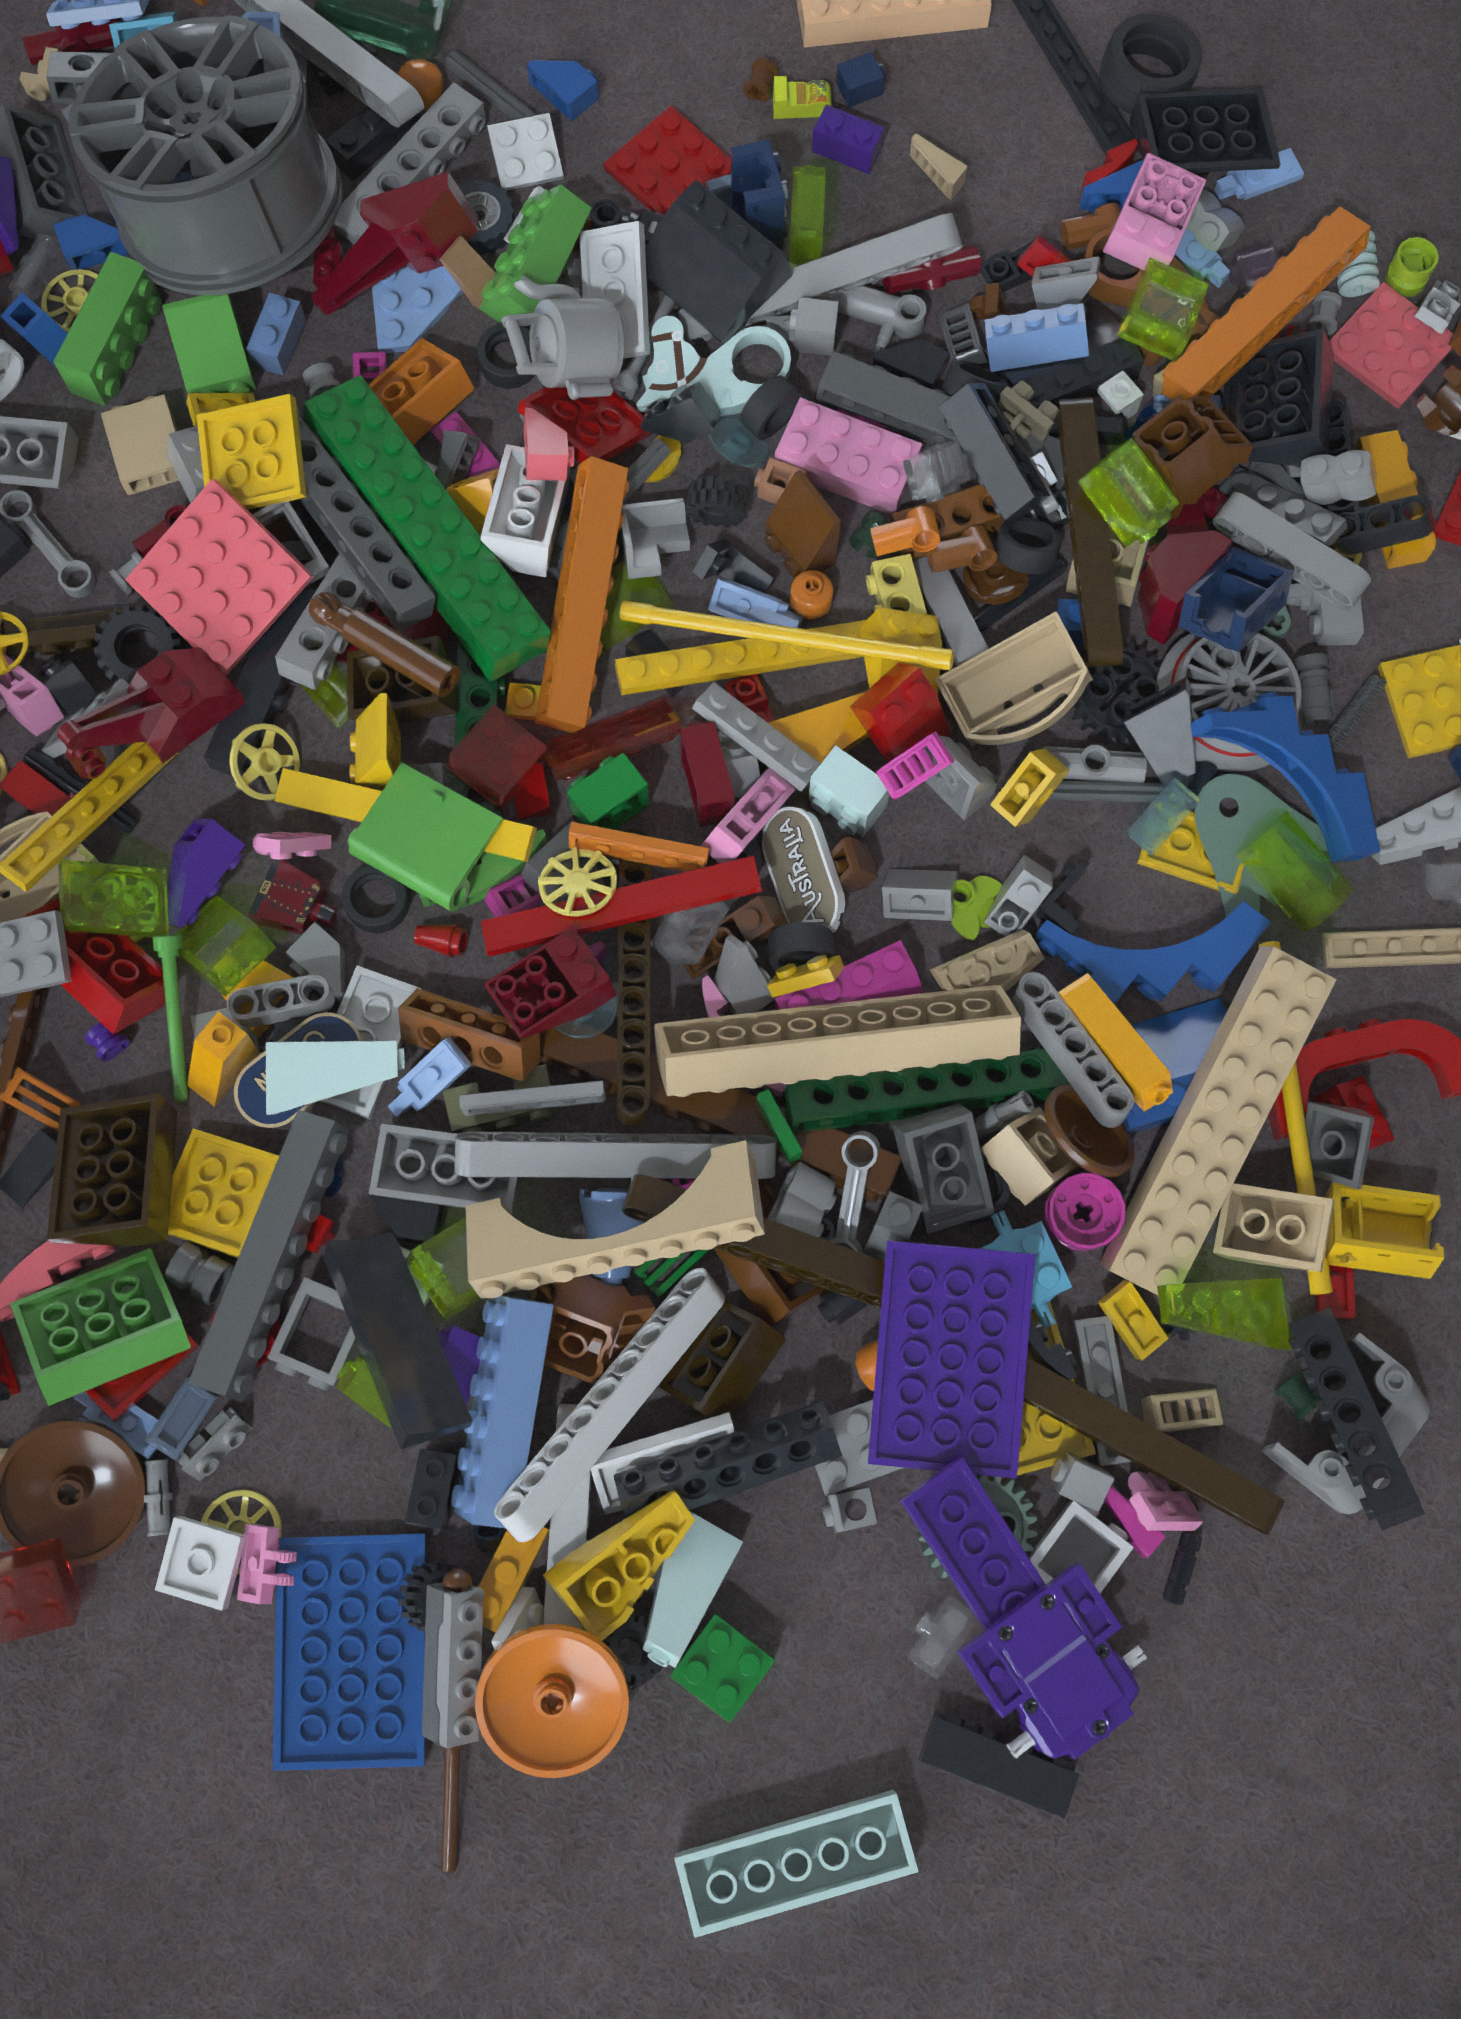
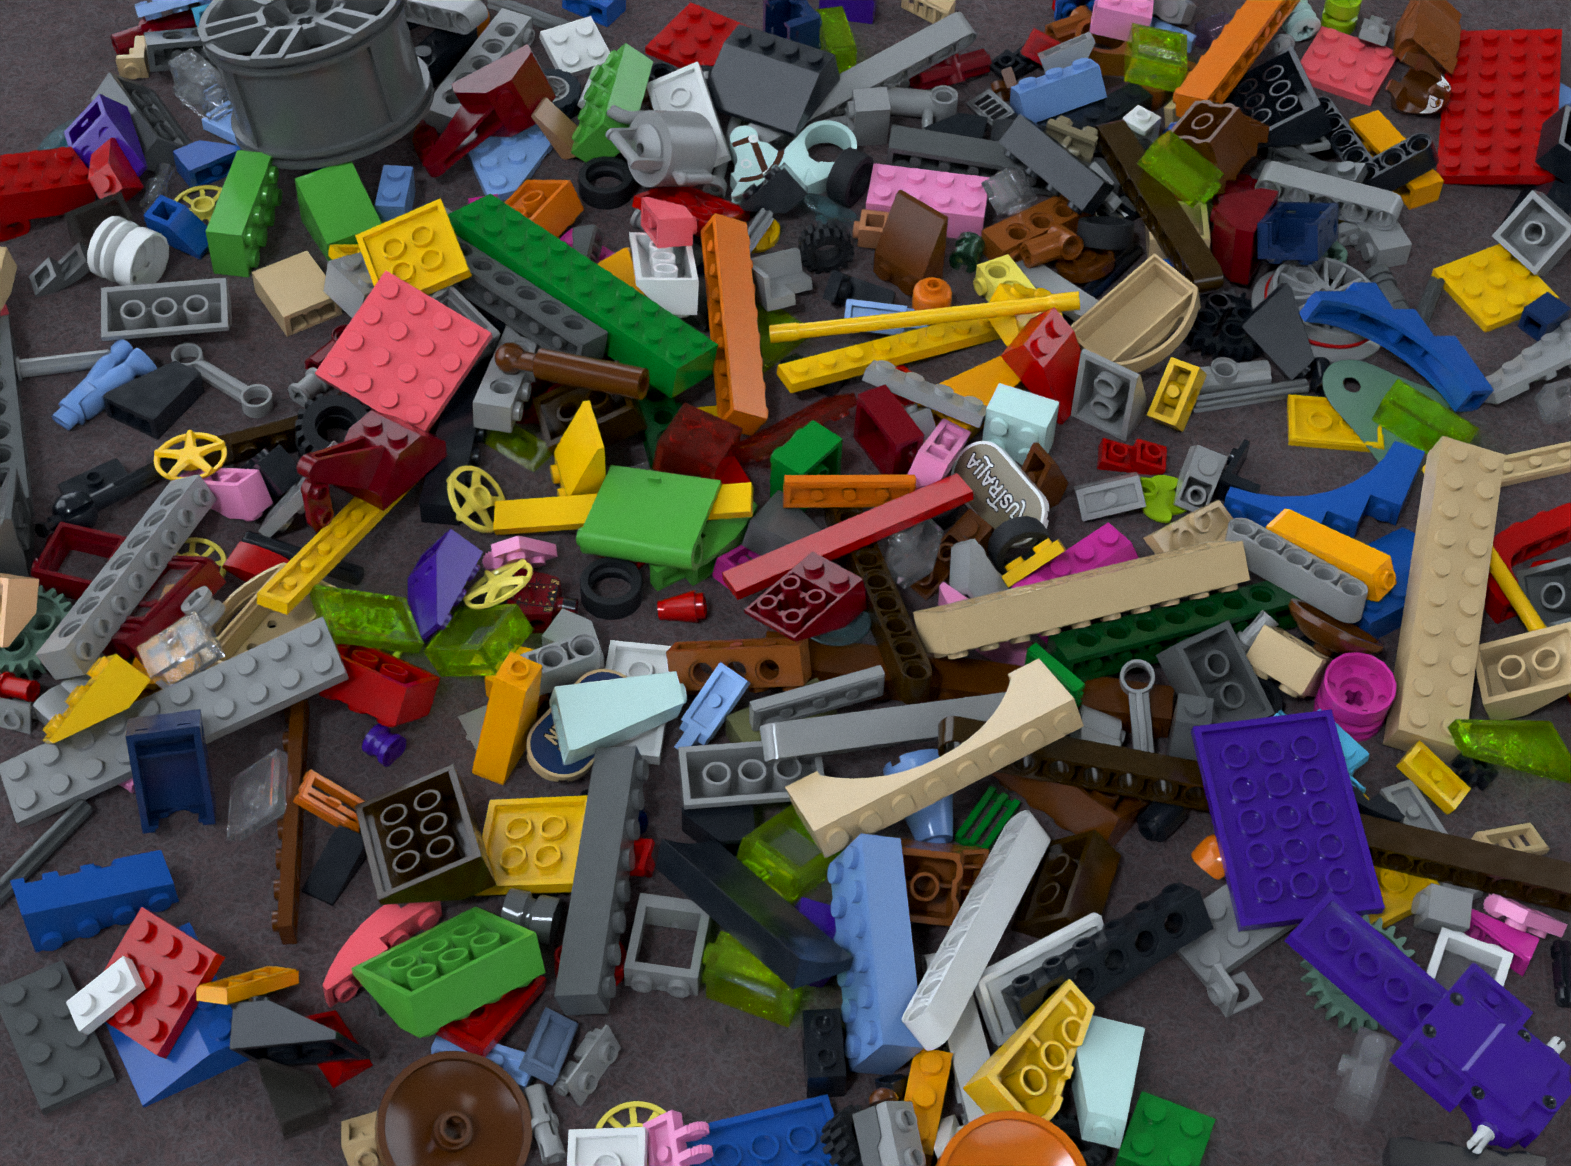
camera: 15 degrees left, 25 degrees down
(168, 949) = (431, 642): bright green piece -> none
(253, 886) = (499, 586): none -> light yellow wheel
(577, 881) = (802, 524): light yellow wheel -> none
(897, 777) = (1060, 397): dark pink slope -> none
(916, 531) = (1000, 235): orange piece -> none
(963, 847) = (1142, 457): none -> red slope
(1163, 816) = (1299, 397): clear light blue slope -> none
(1340, 477) = (1348, 136): light grey brick -> none

